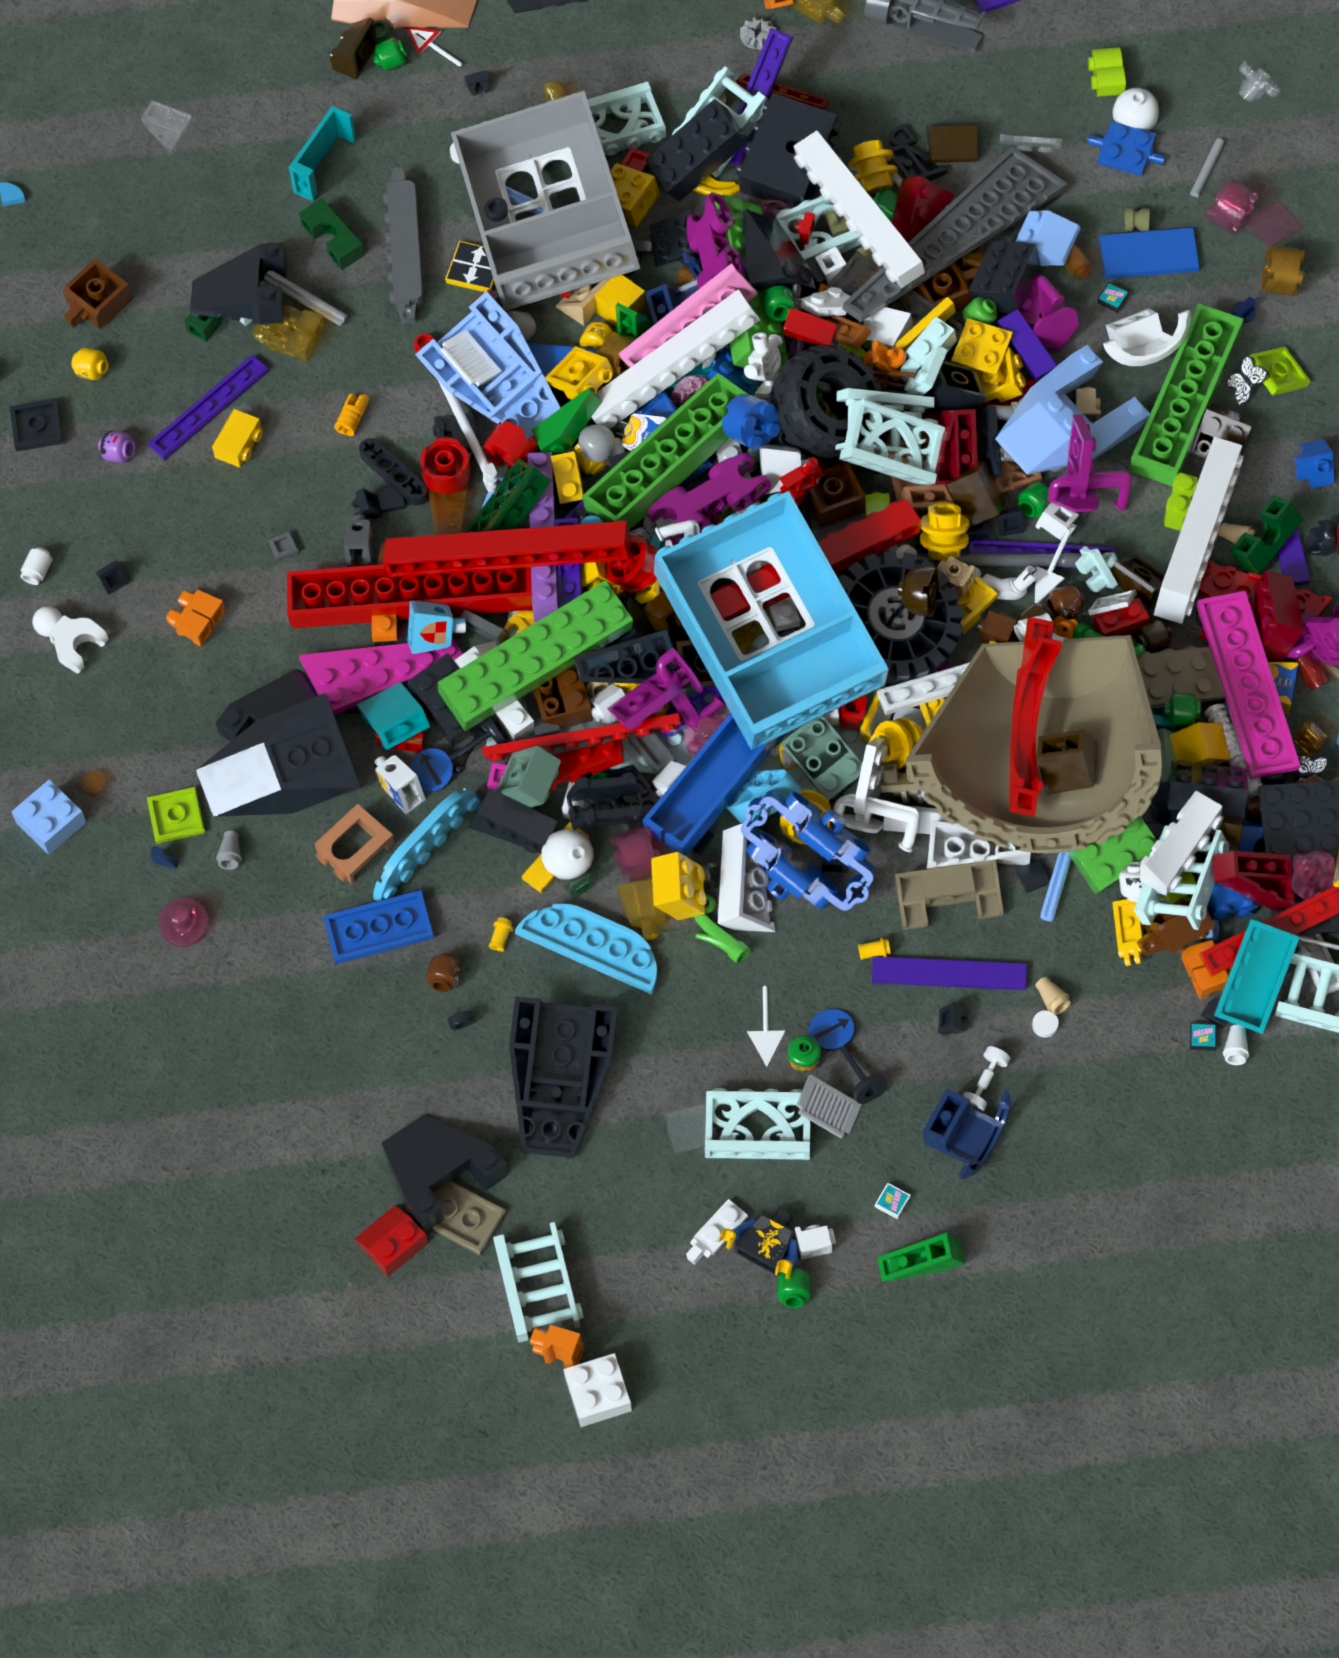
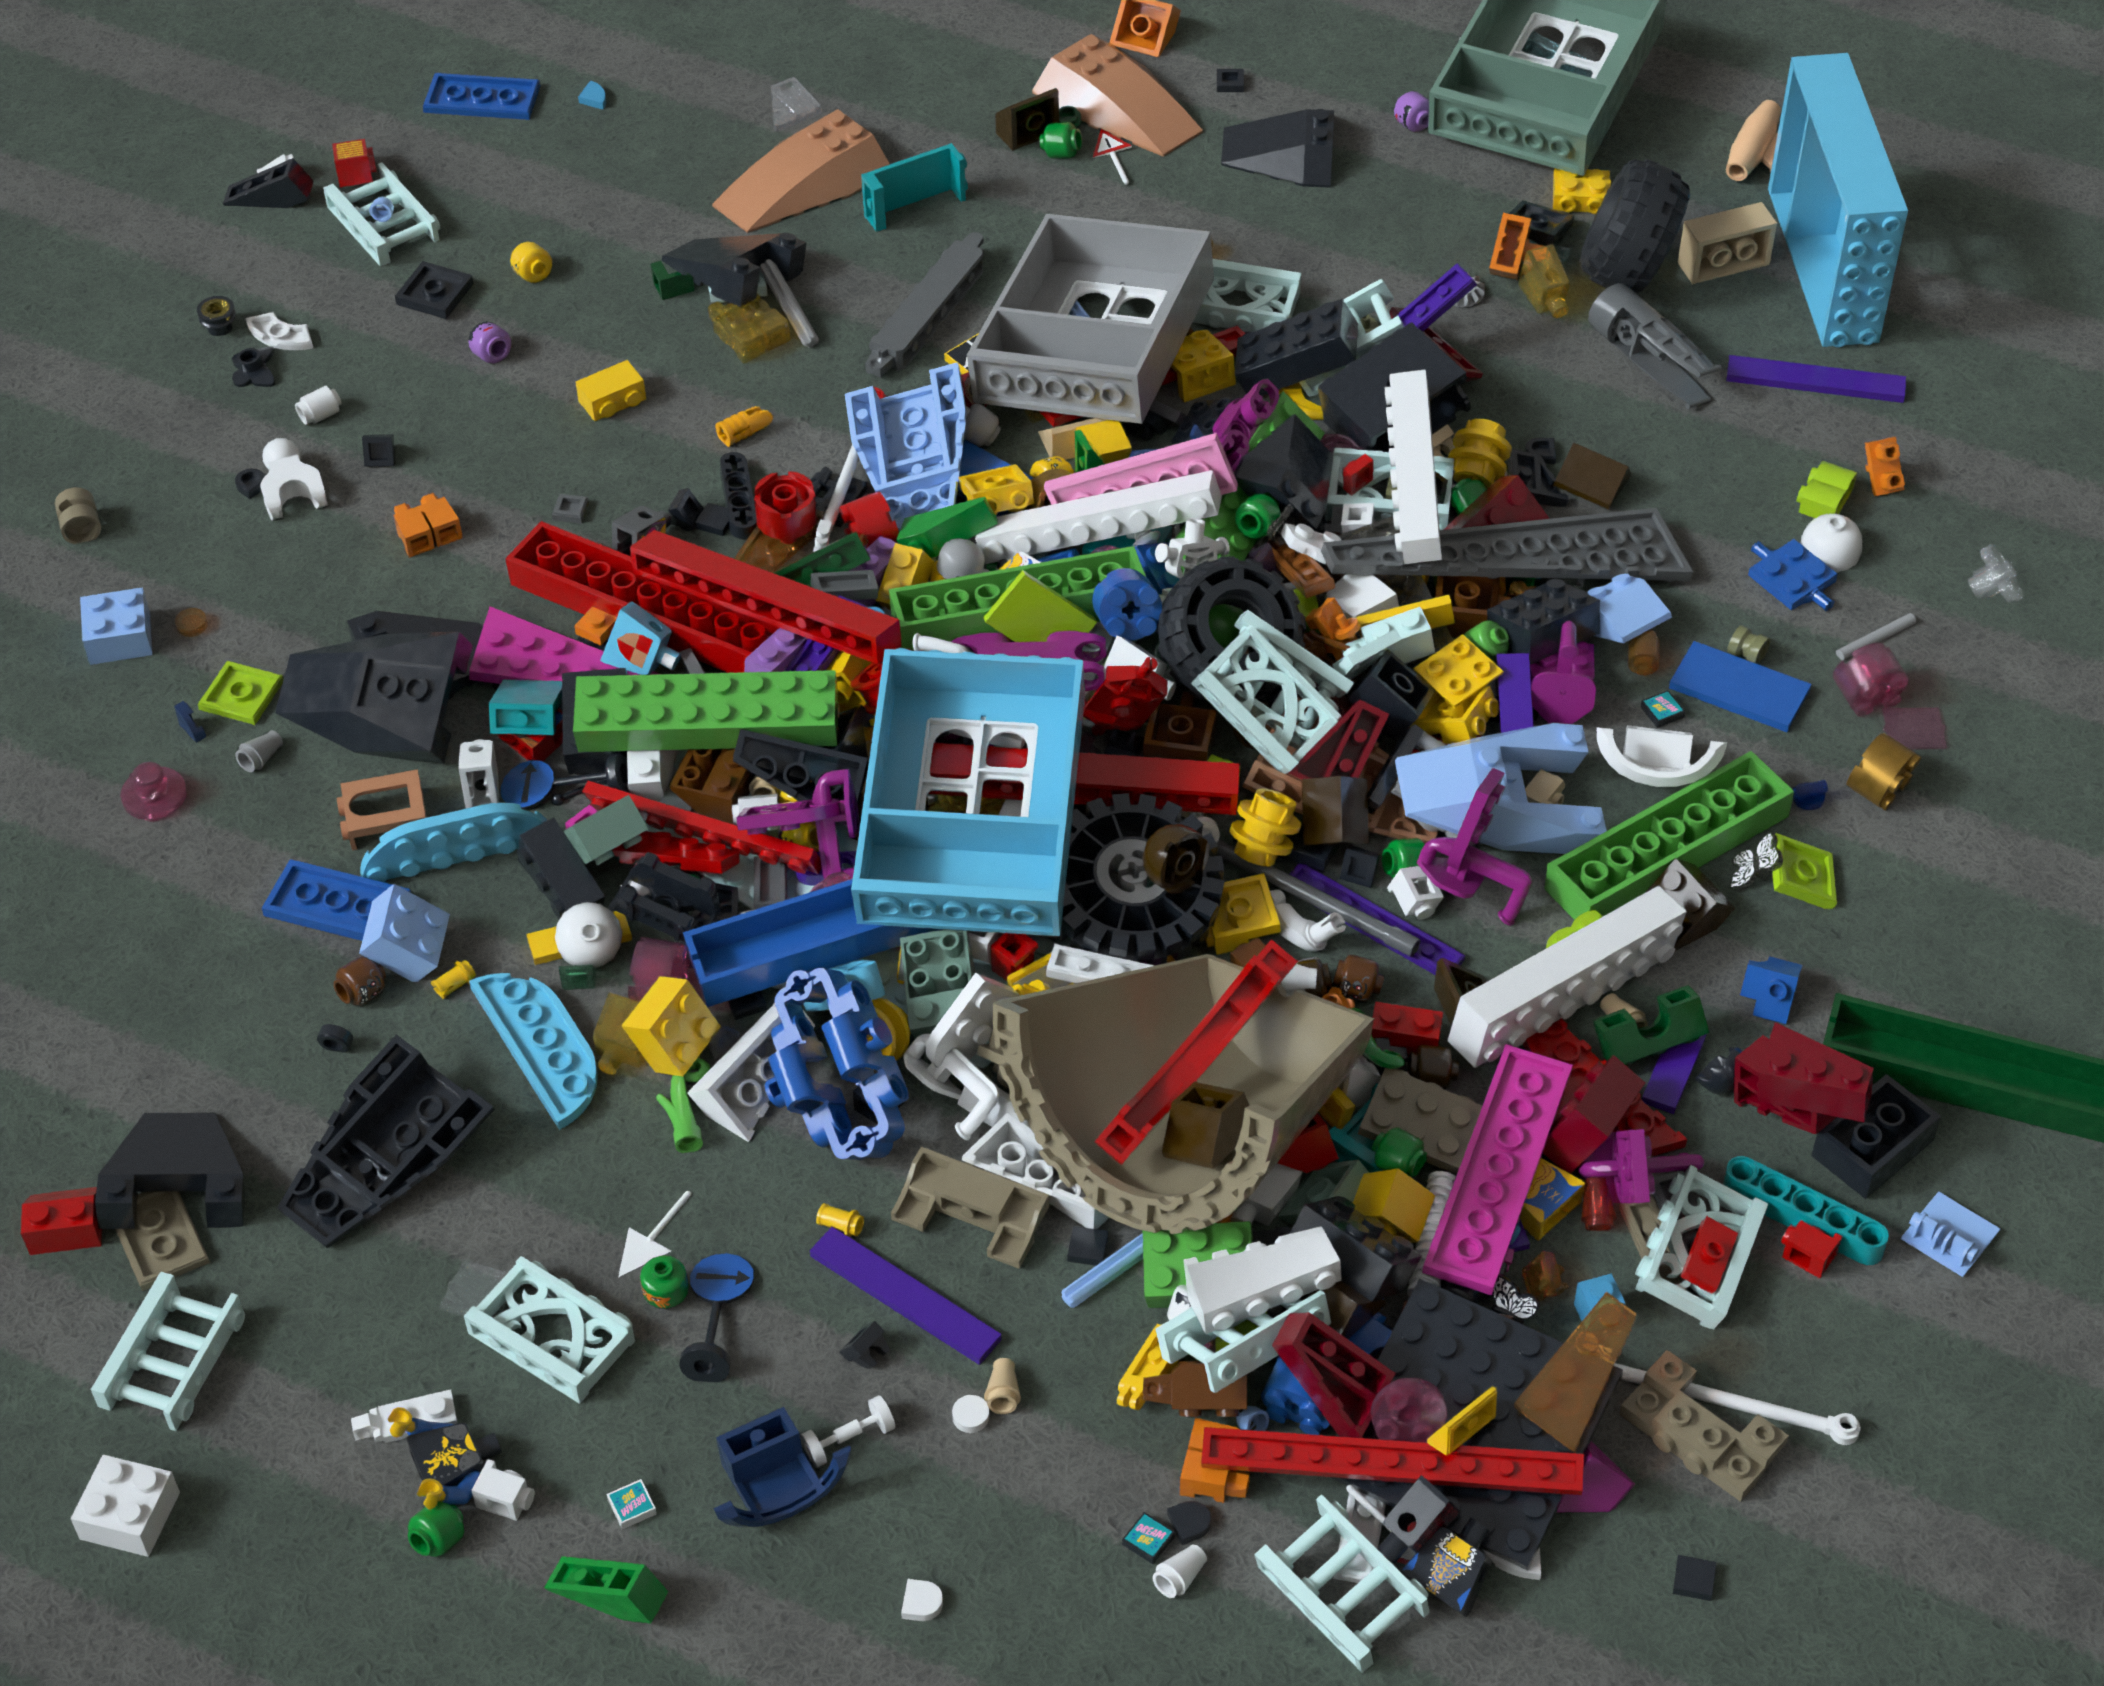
camera: 30 degrees right, 15 degrees down
(38, 652) = (249, 482): none -> black tile
(95, 295) = (587, 207): reddish brown hinge -> none
(208, 407) = (611, 353): dark purple tile -> none
(223, 178) = (803, 173): none -> nougat wedge
(323, 219) = (866, 262): dark green arch -> none
(451, 923) = (404, 933): none -> light blue brick
(470, 359) = (897, 425): white window -> none
(477, 78) = (1128, 197): black tile -> none
(496, 209) = (1026, 291): black tile -> none
(547, 508) = (849, 584): none -> dark grey tile
(558, 1344) = (123, 1428): orange hips -> none
(694, 459) = (1034, 611): none -> lime tile
(809, 328) = (1264, 546): red slope -> none
(827, 1107) = (641, 1354): light grey window -> none
(962, 579) = (1243, 872): tan brick -> none
(1026, 143) = (1676, 511): clear wing -> none
(1047, 580) = (1356, 942): white piece -> none
(1099, 566) = (1420, 974): light aqua hips -> none
(1104, 1153) = (921, 1600): none -> white tile
(1112, 602) = (1411, 1003): white window -> none
(1133, 33) = (1884, 466): none -> orange hips
(1256, 976) = (1255, 1495): teal slope -> none

